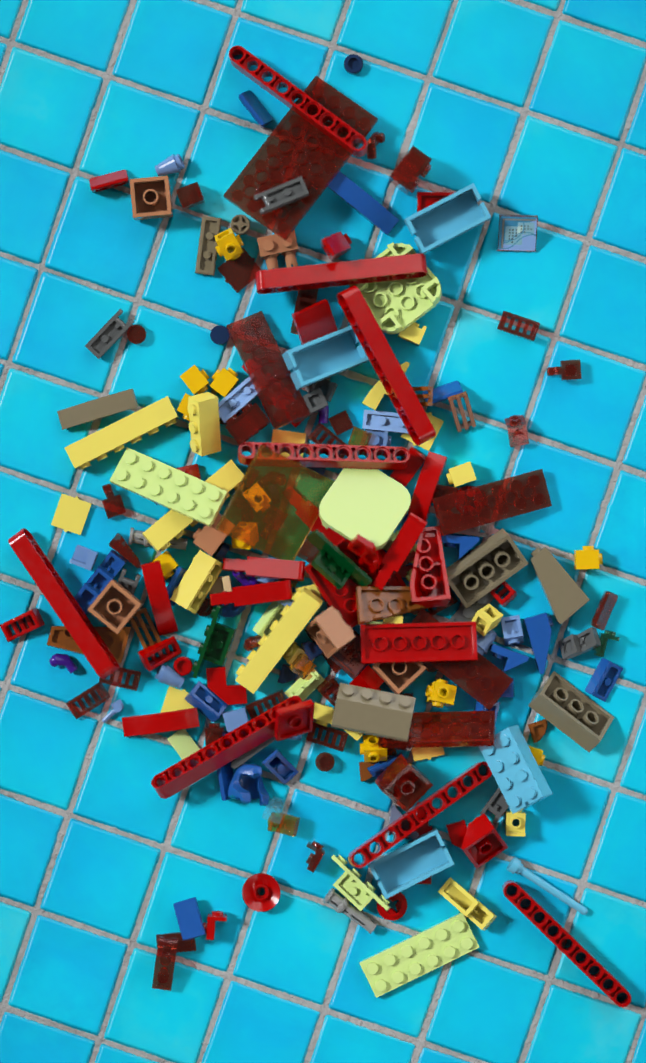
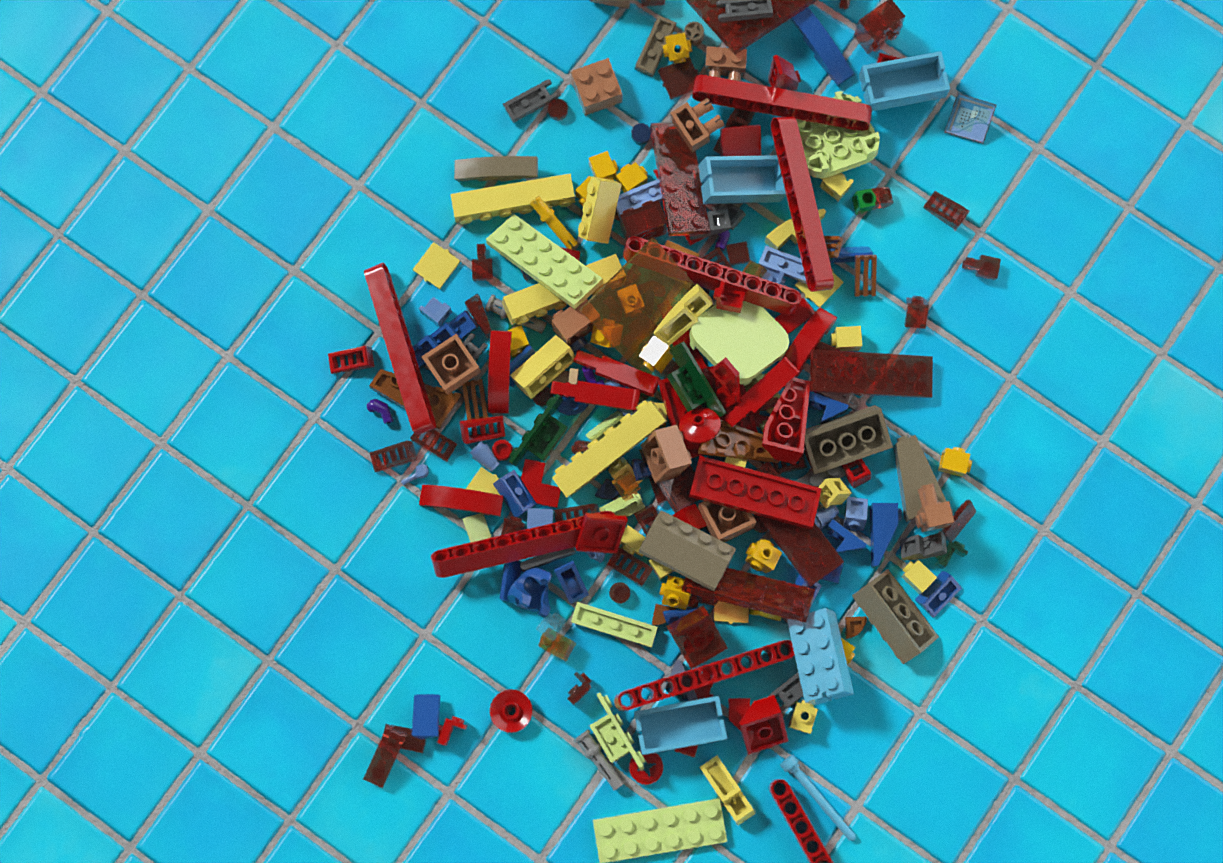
camera: 15 degrees right, 10 degrees down
(159, 442) = (553, 222): none -> yellow pin
(166, 303) = (596, 86): none -> nougat brick
(268, 326) = (689, 126): none -> nougat brick
(294, 544) = (656, 355): none -> brick
(309, 501) = (683, 315): none -> light yellow slope
(328, 791) = (614, 624): none -> yellowish green plate
(345, 473) = (728, 299): none -> red bracket
(358, 603) = (701, 431): none -> red dish
(448, 337) = (872, 199): none -> leg
(578, 617) = (933, 513): none -> nougat brick
(581, 670) = (918, 576): none -> light yellow brick

